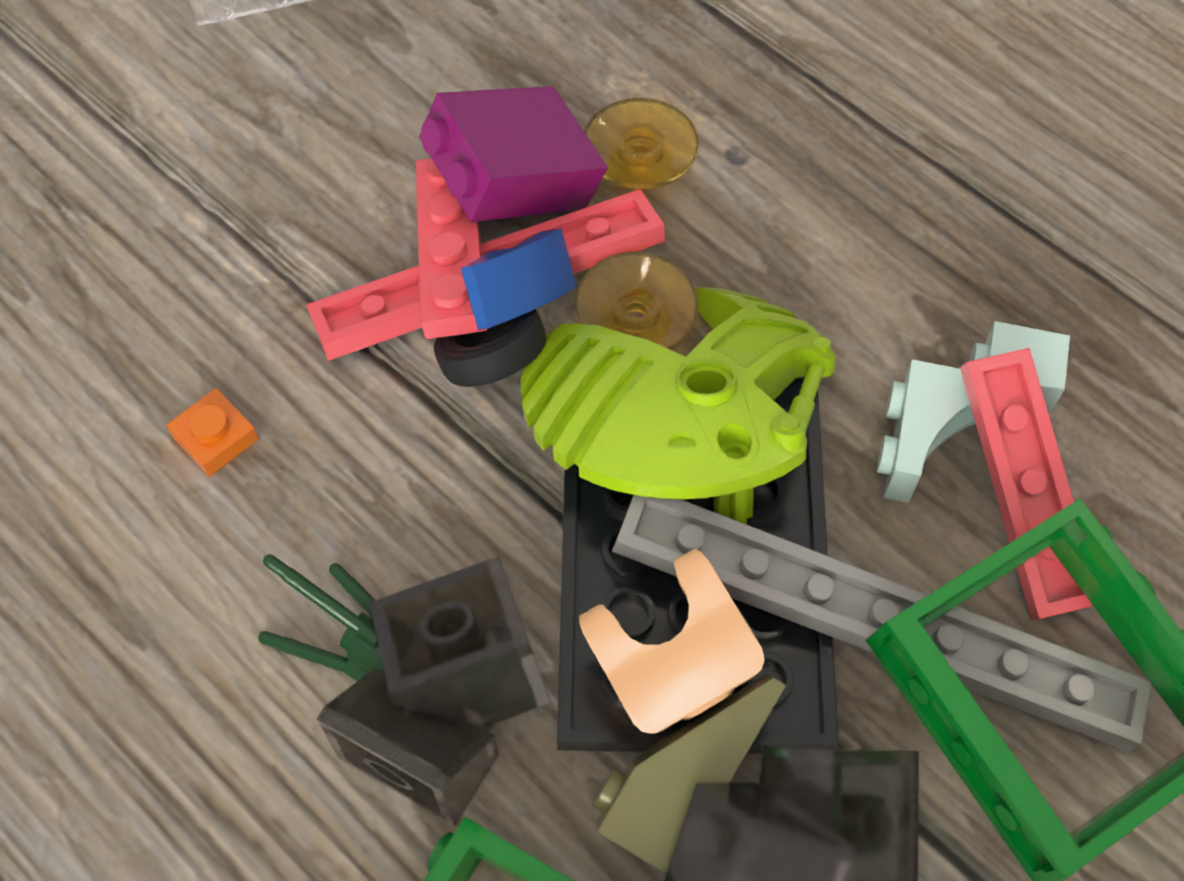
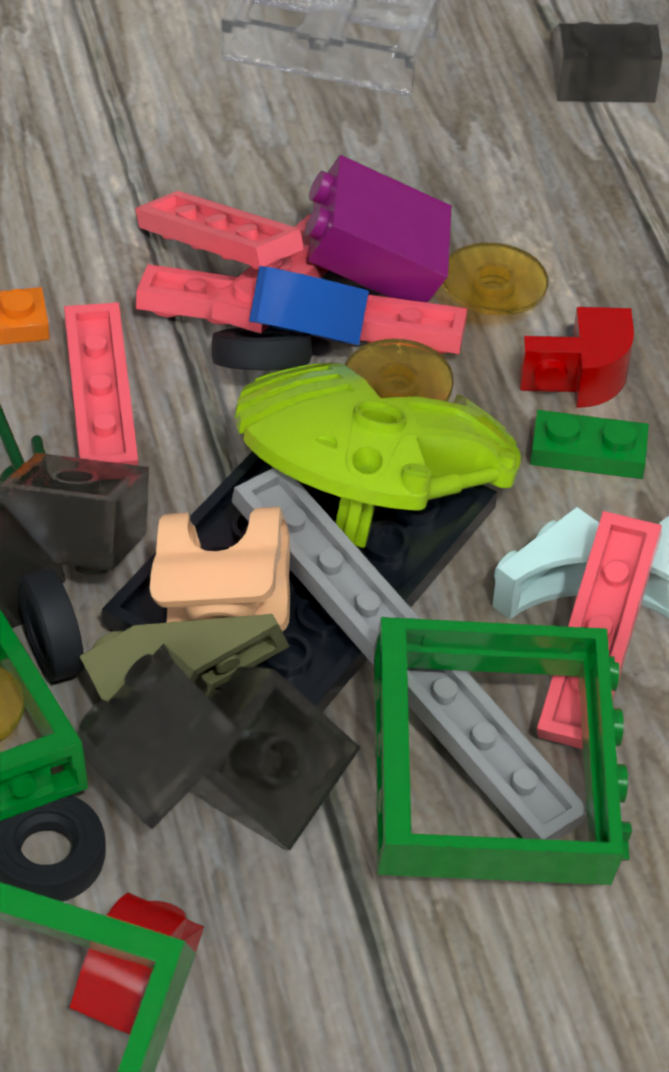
camera: 30 degrees right, 15 degrees down
(362, 232) = (220, 229): none -> coral plate
(363, 478) = (100, 383): none -> coral plate
(531, 802) = (50, 624): none -> black tyre
(785, 185) = (588, 363): none -> red brick
(842, 272) = (589, 444): none -> green plate

